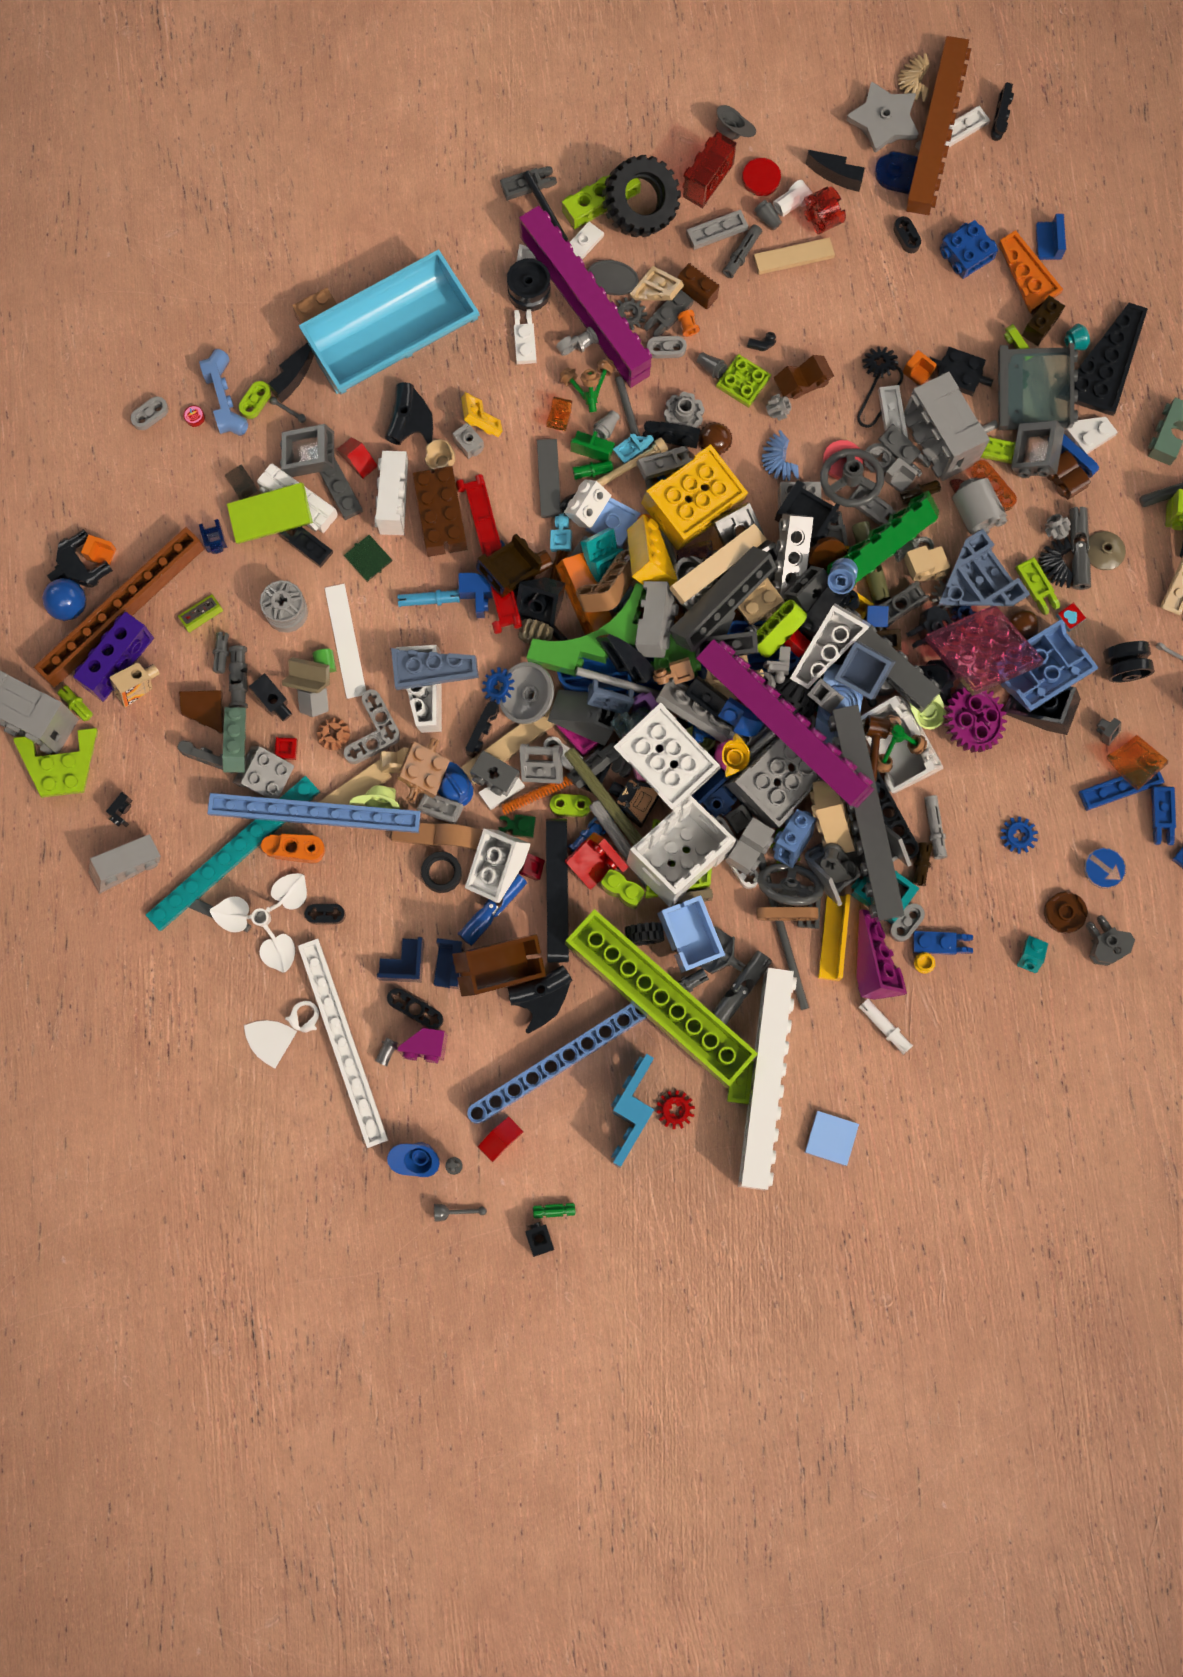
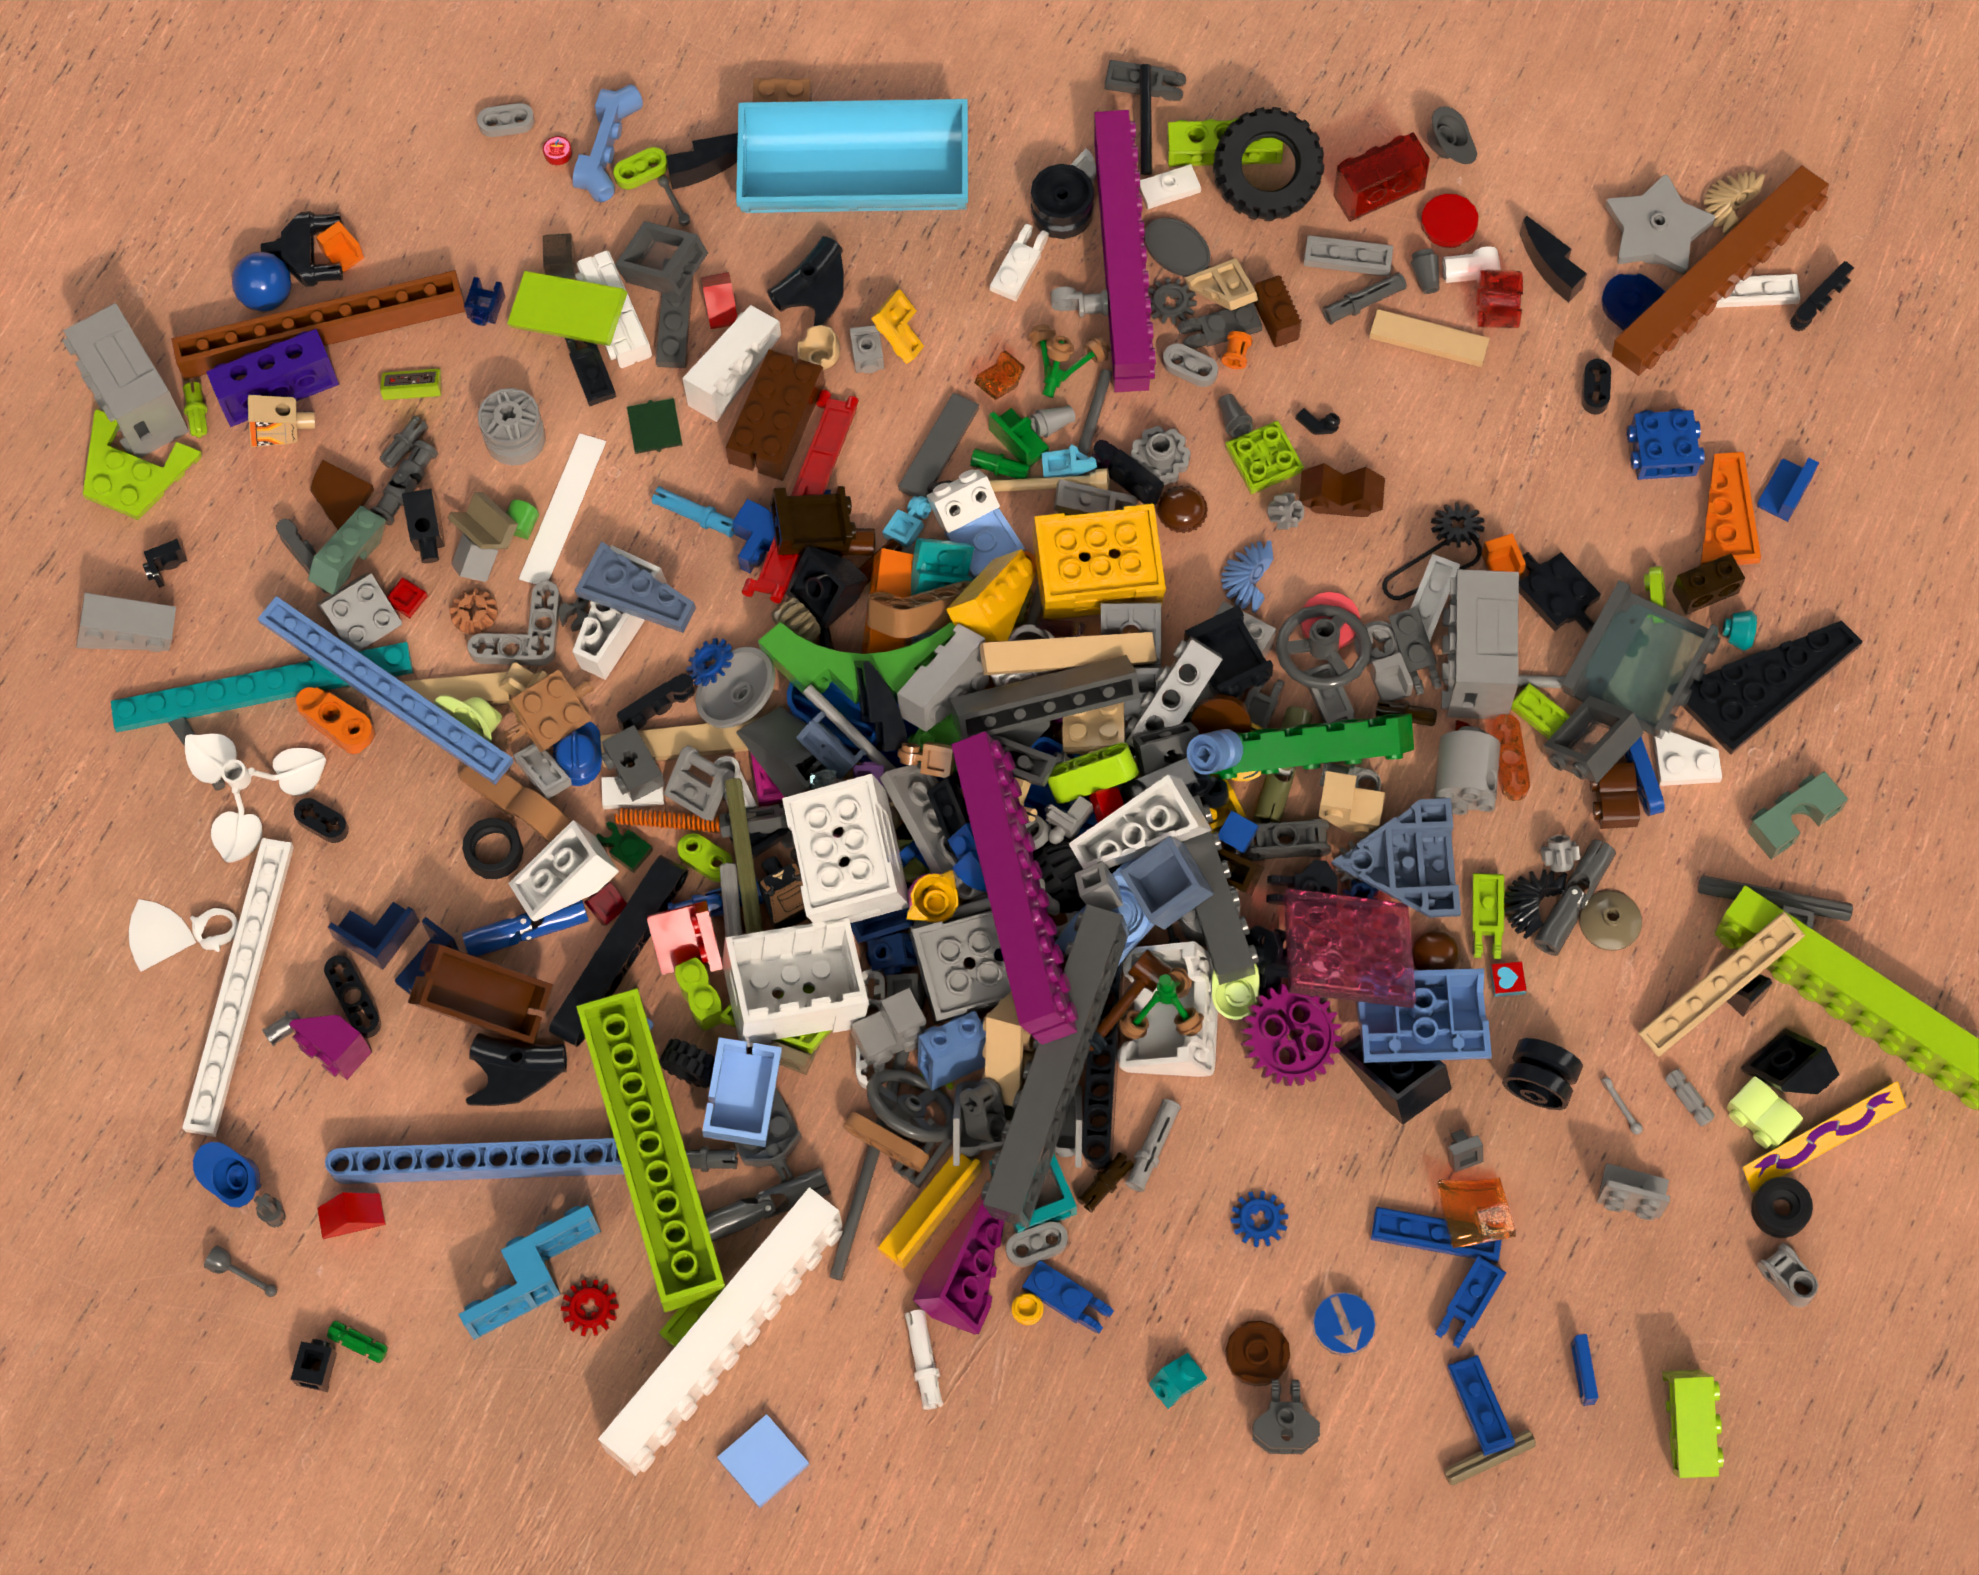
camera: 35 degrees right, 10 degrees down
(395, 694) = (567, 610): none -> dark grey bar

